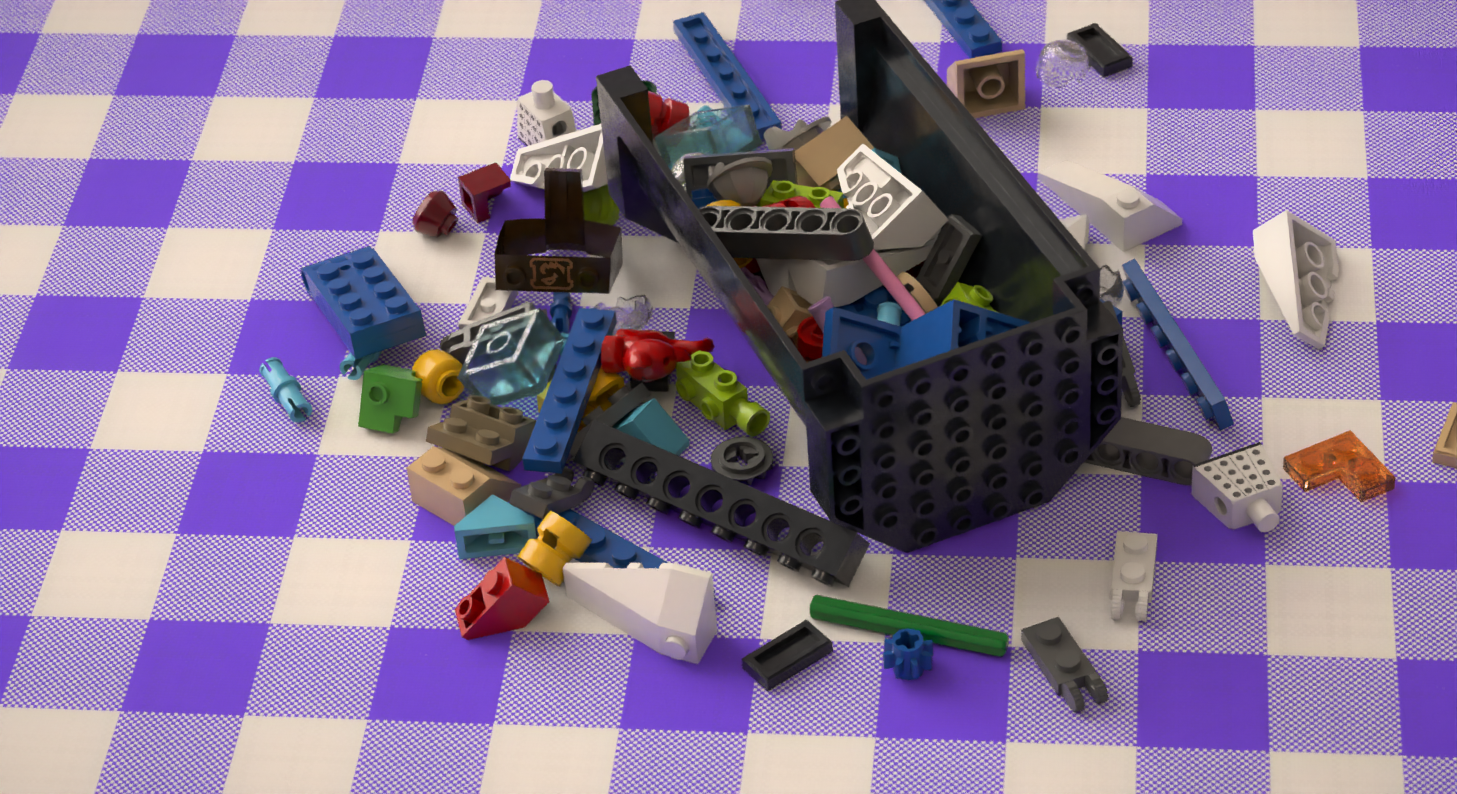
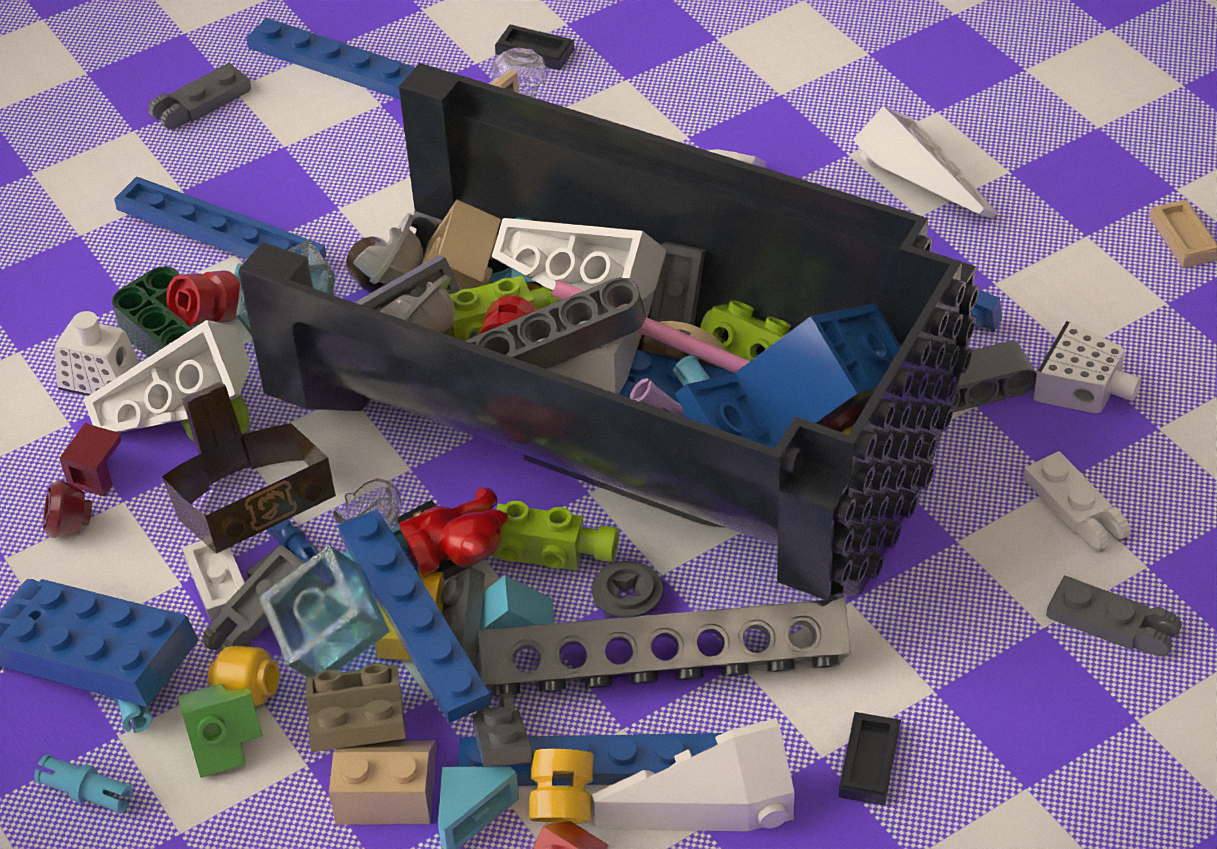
camera: 40 degrees left, 5 degrees up
(890, 621) = (945, 662): green axle -> none
(908, 654) = (983, 689): blue gear -> none
(1343, 459) = (1126, 301): clear orange plate -> none

